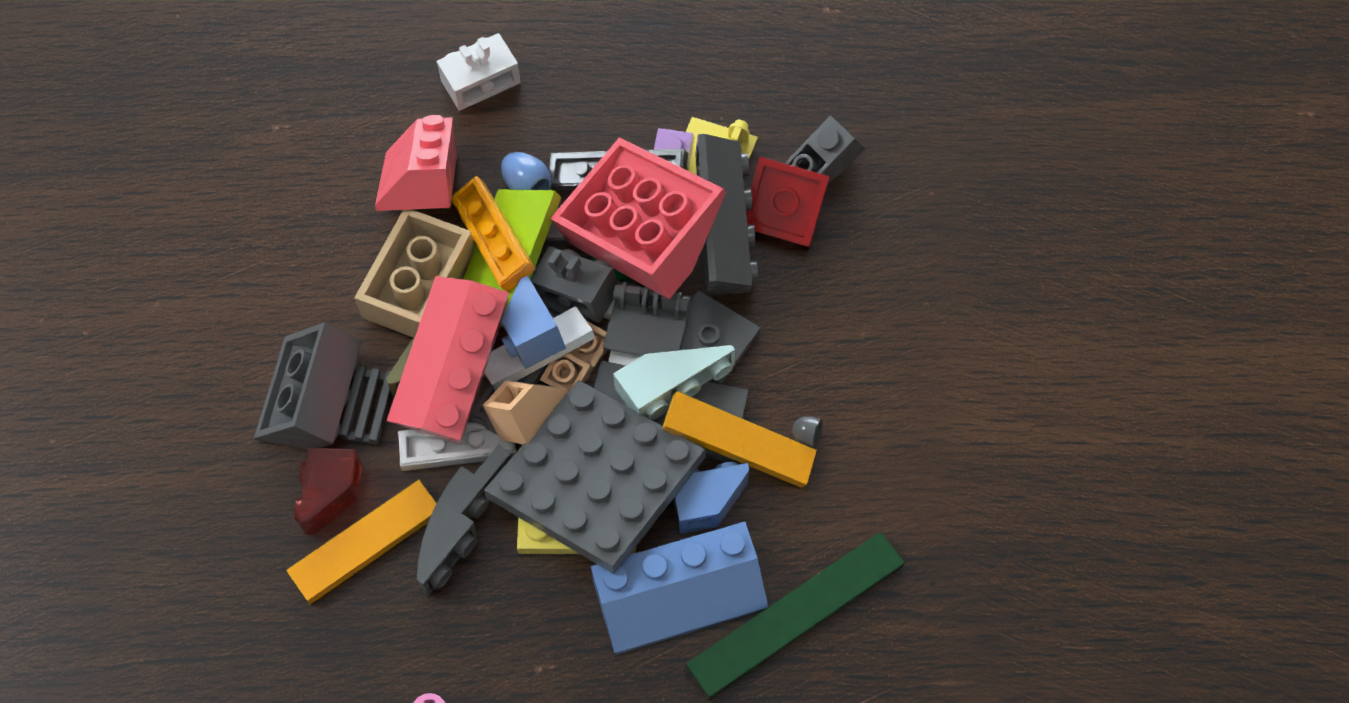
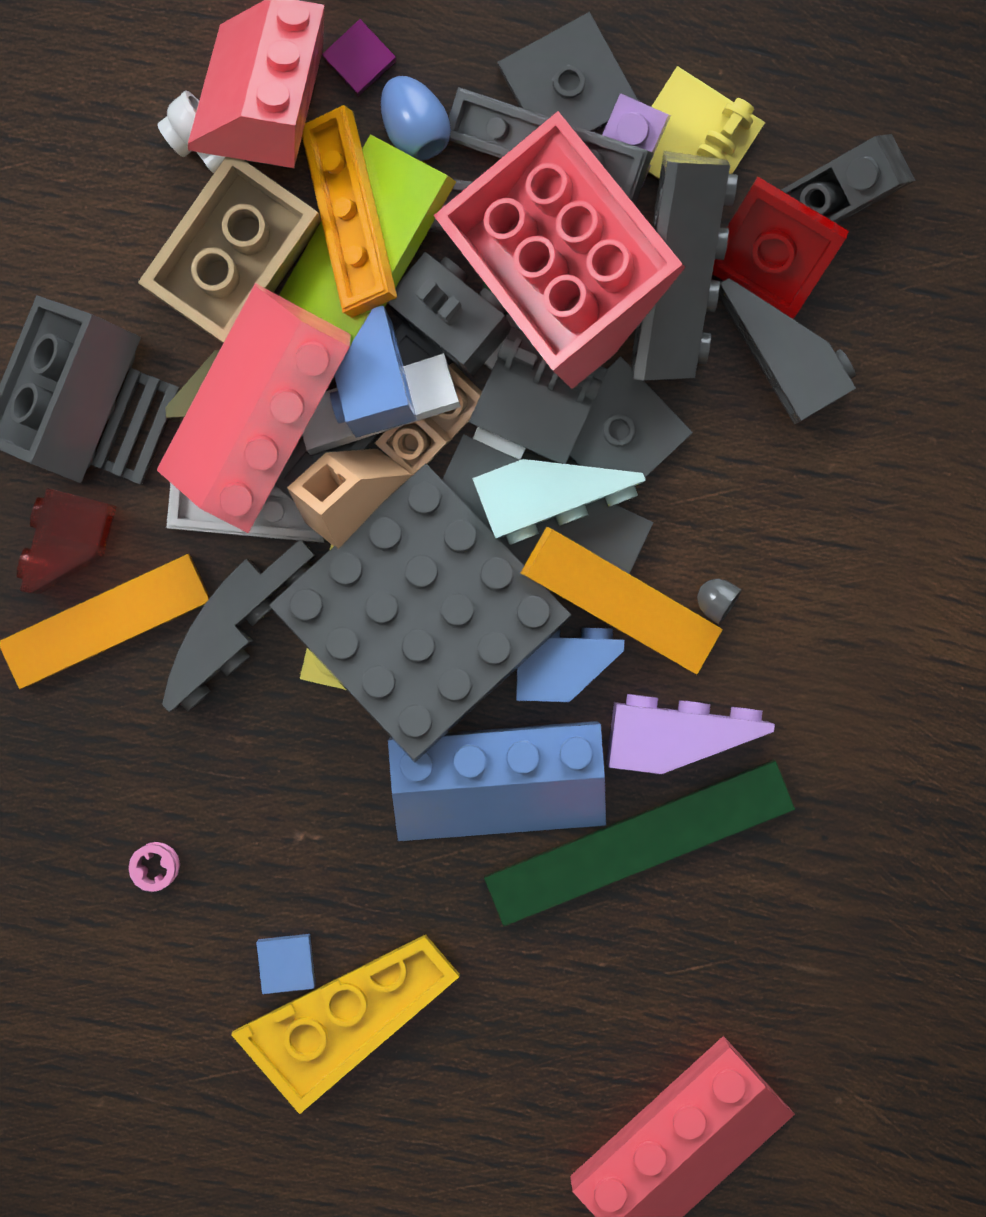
camera: 10 degrees right, 25 degrees up
(374, 219) = (178, 125): none -> white piece
(482, 152) = (359, 57): none -> magenta tile
(621, 121) = (568, 74): none -> dark grey plate
(796, 530) = (666, 739): none -> lavender slope
(812, 264) = (793, 358): none -> dark grey slope

